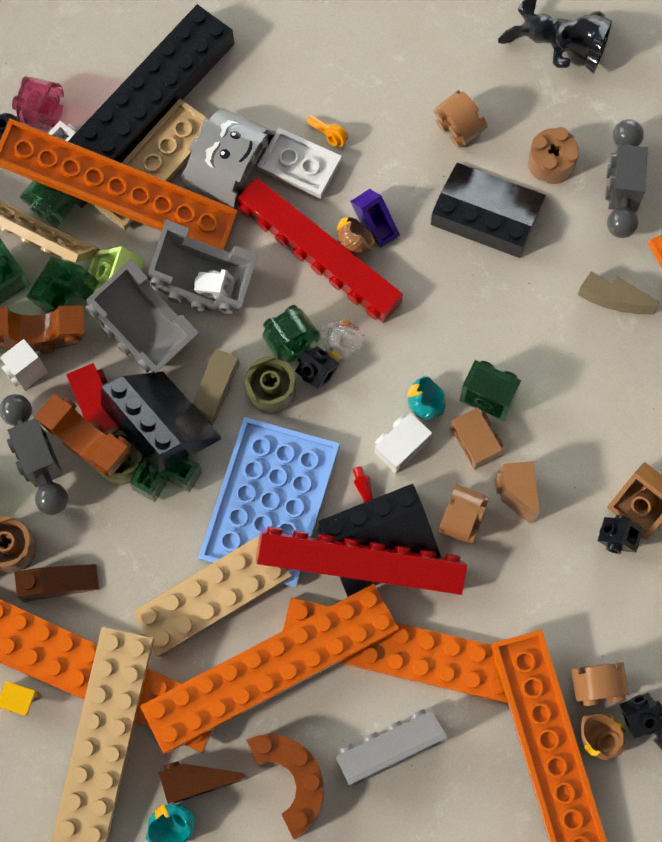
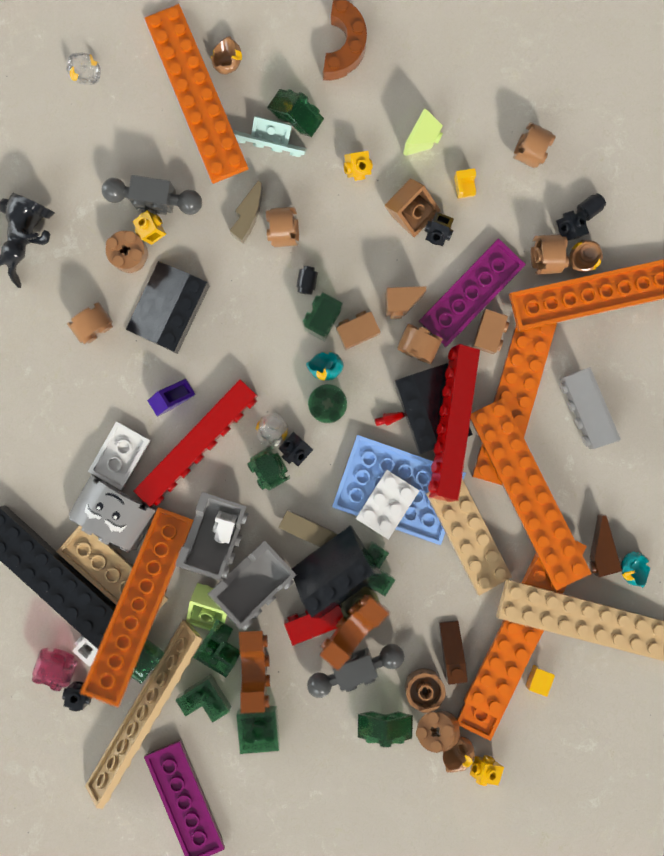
camera: 90 degrees left, 15 degrees up
(23, 365) = (283, 679): white brick -> none
(249, 484) = (387, 504): none -> white plate
(268, 398) = (303, 495): olive brick -> none
(306, 773) = (595, 474): dark orange brick -> none
(335, 133) = (96, 425): light orange plate -> none
(354, 236) = (187, 414): medium nougat hair -> none
(365, 396) = (321, 395): none -> clear green brick
(402, 442) = (358, 386): white brick -> none
(487, 611) = (490, 332): none -> medium nougat brick
(536, 371) = (306, 280): none -> black brick
(539, 585) = (472, 292): none -> magenta plate
(586, 179) = (149, 227): none -> yellow brick
(602, 335) = (283, 227): none -> medium nougat brick

